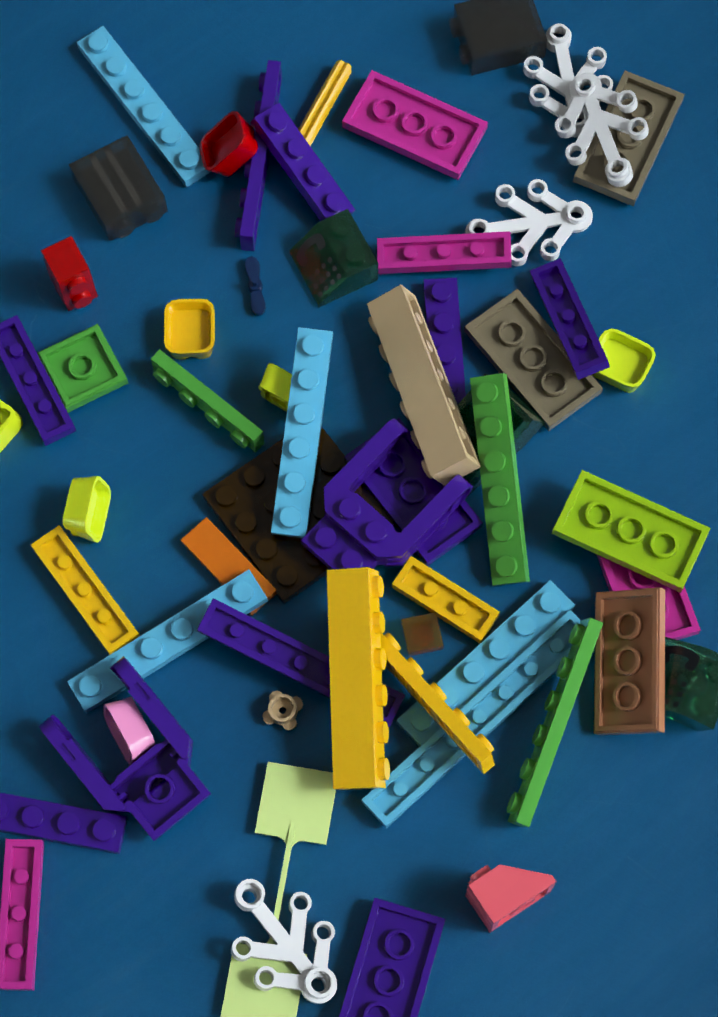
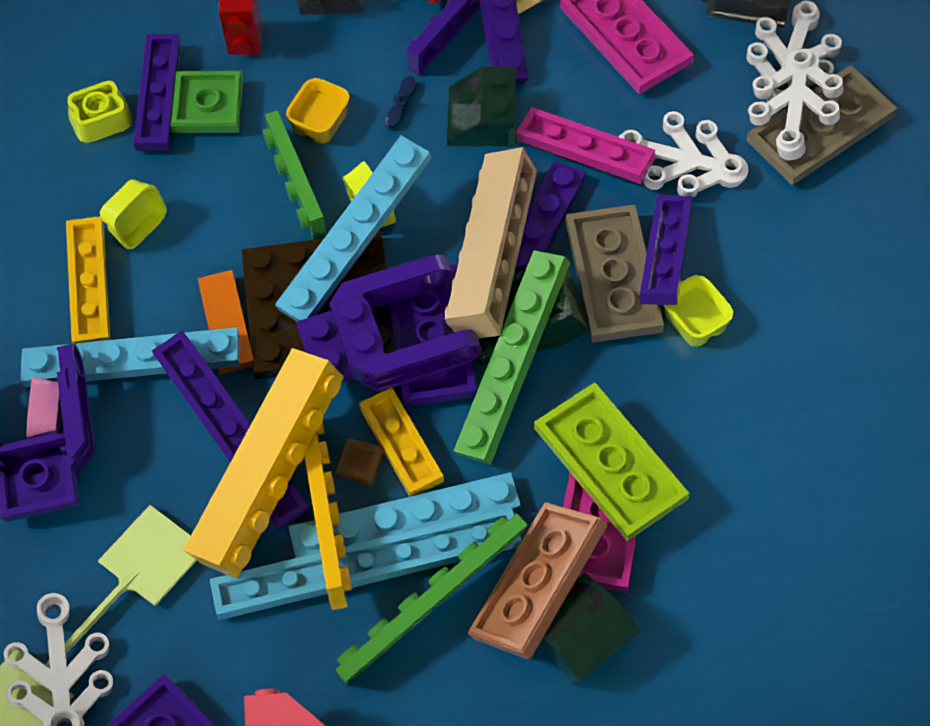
camera: 30 degrees right, 10 degrees down
(278, 701) = (191, 457): tan plate -> none

